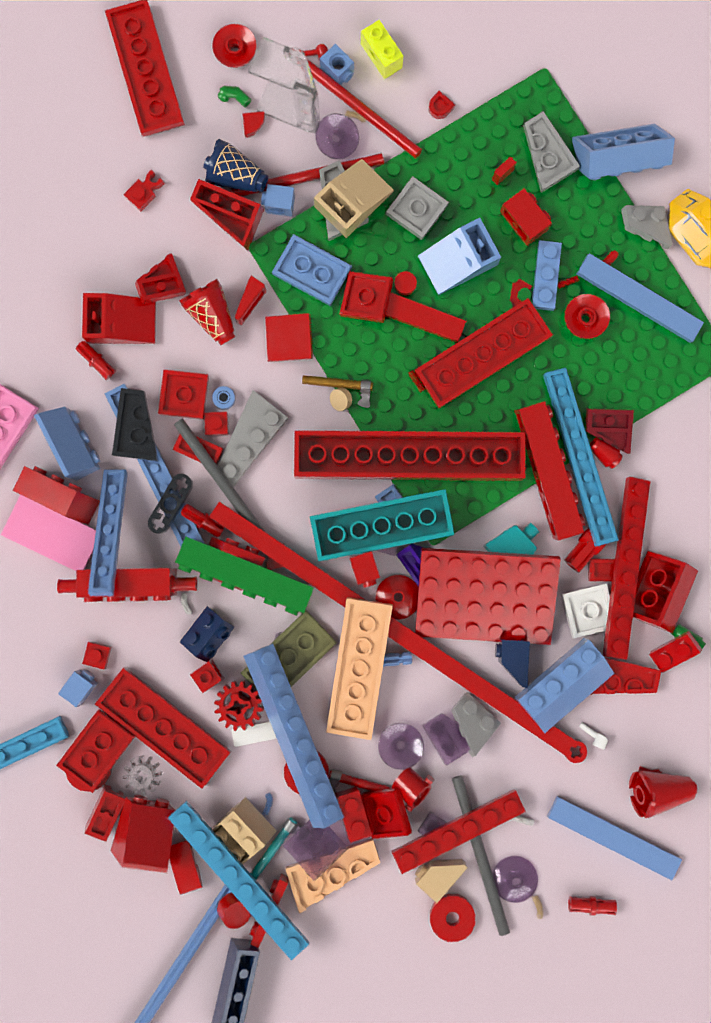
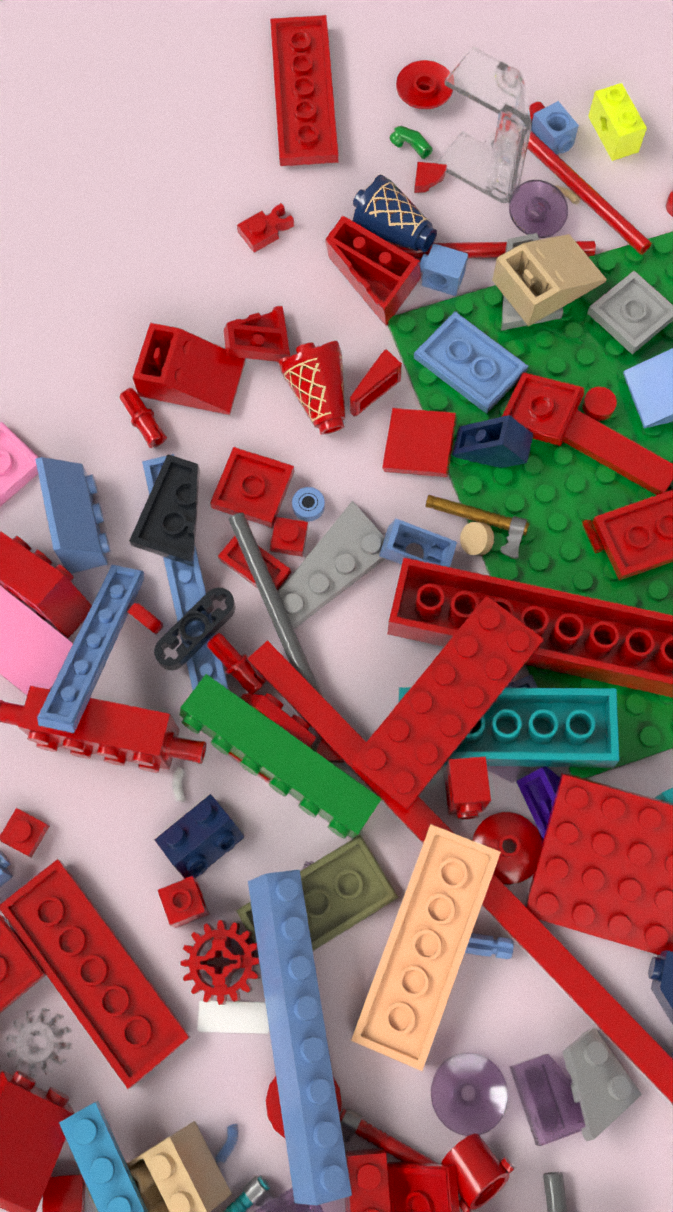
camera: 15 degrees right, 15 degrees down
(136, 502) = (146, 618): none -> red tile
(316, 415) = (400, 534): none -> medium blue piece
(338, 330) = (494, 442): none -> dark blue slope
(341, 520) = (446, 702): none -> red plate

